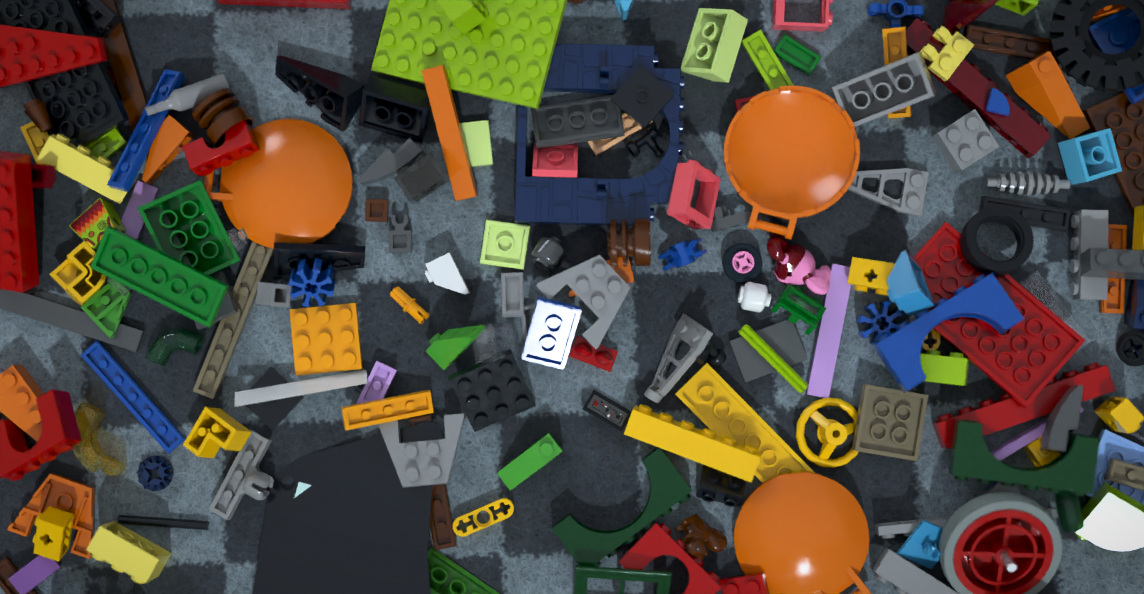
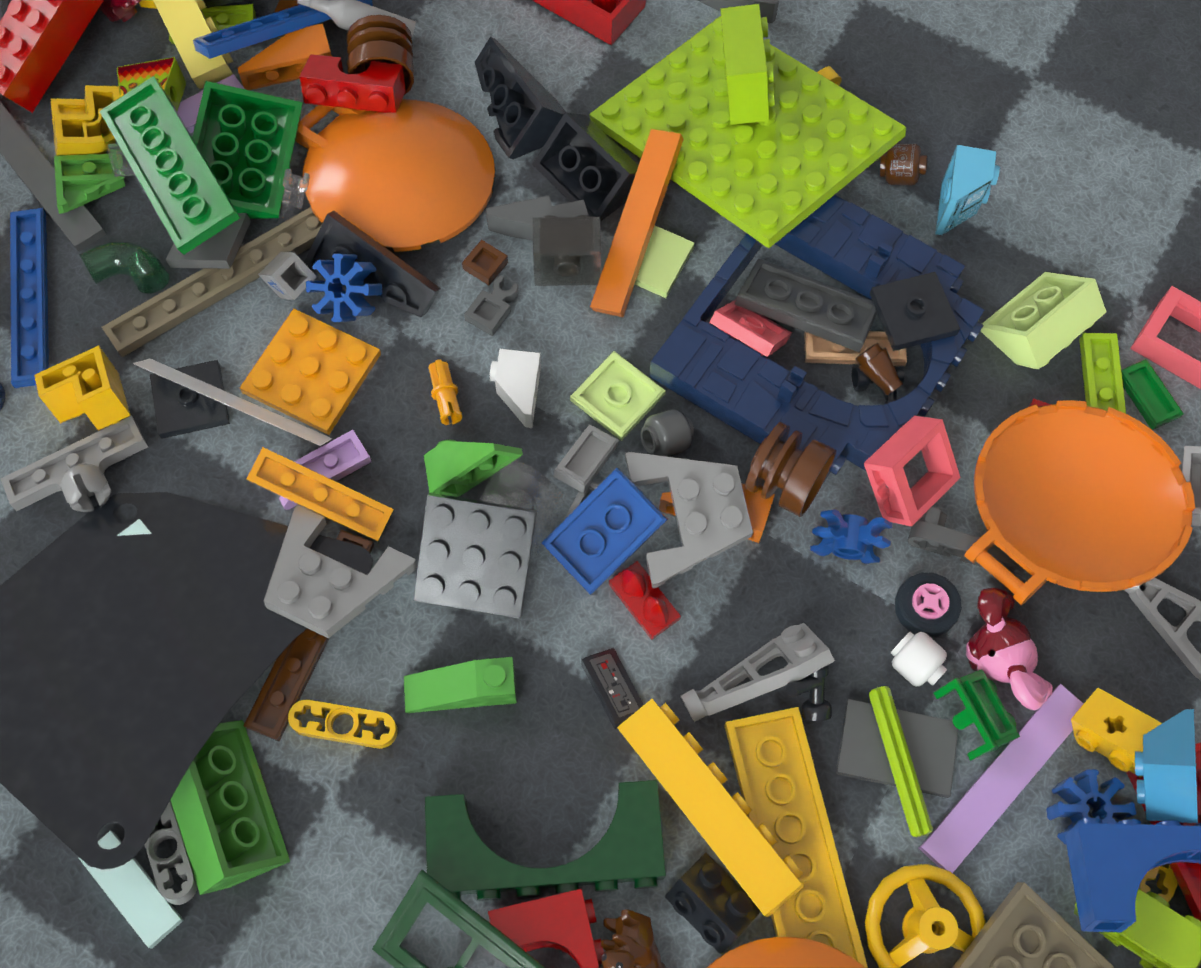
camera: 25 degrees right, 20 degrees down
(639, 140) = (879, 368): none -> reddish brown cone

